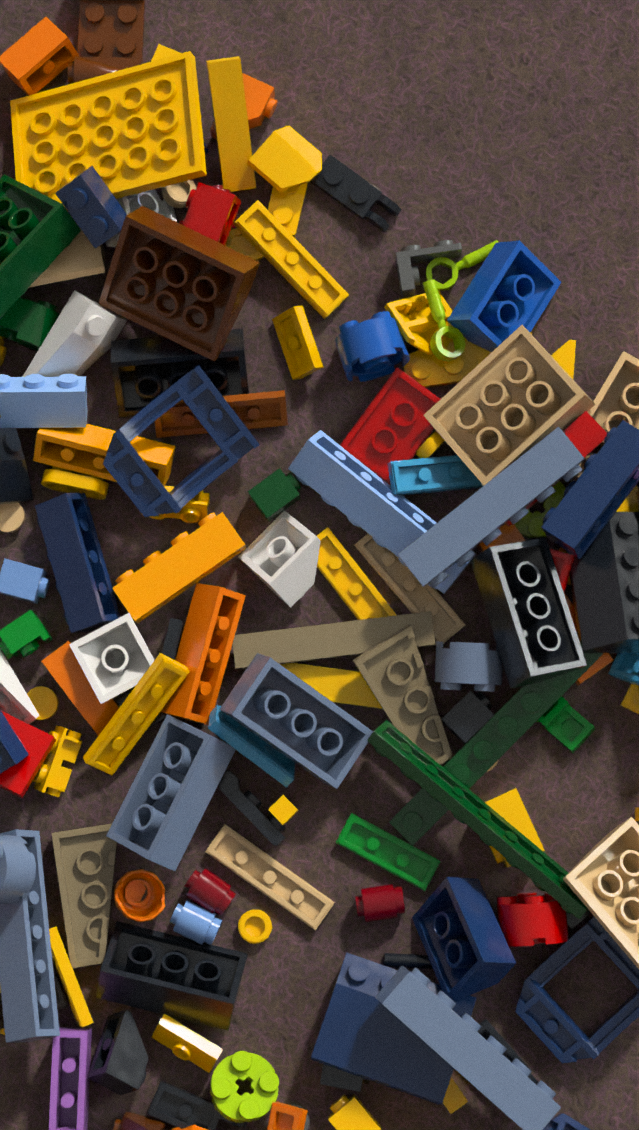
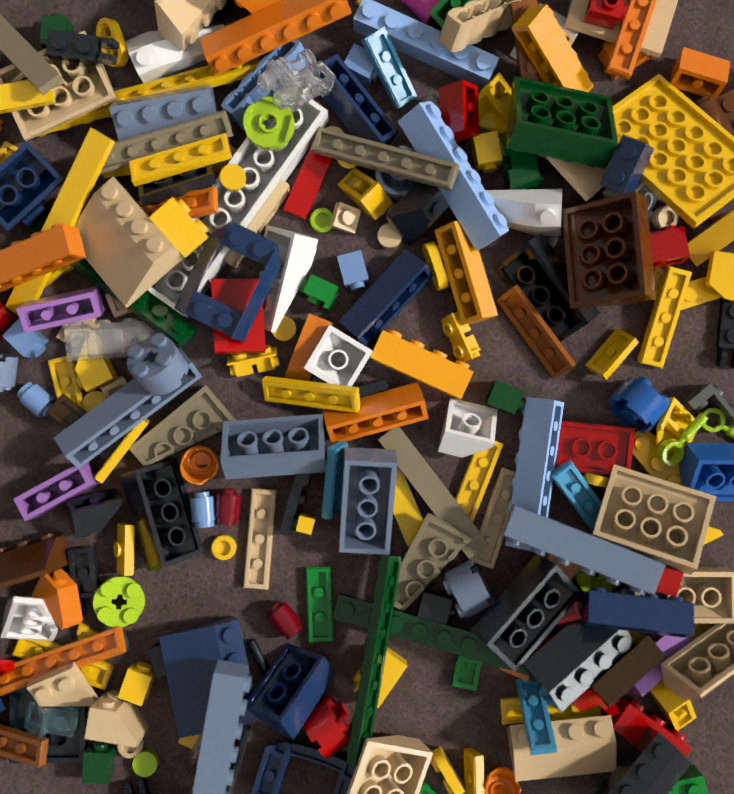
camera: 55 degrees right, 5 degrees up
(215, 416) = (533, 329): dark blue wedge -> none

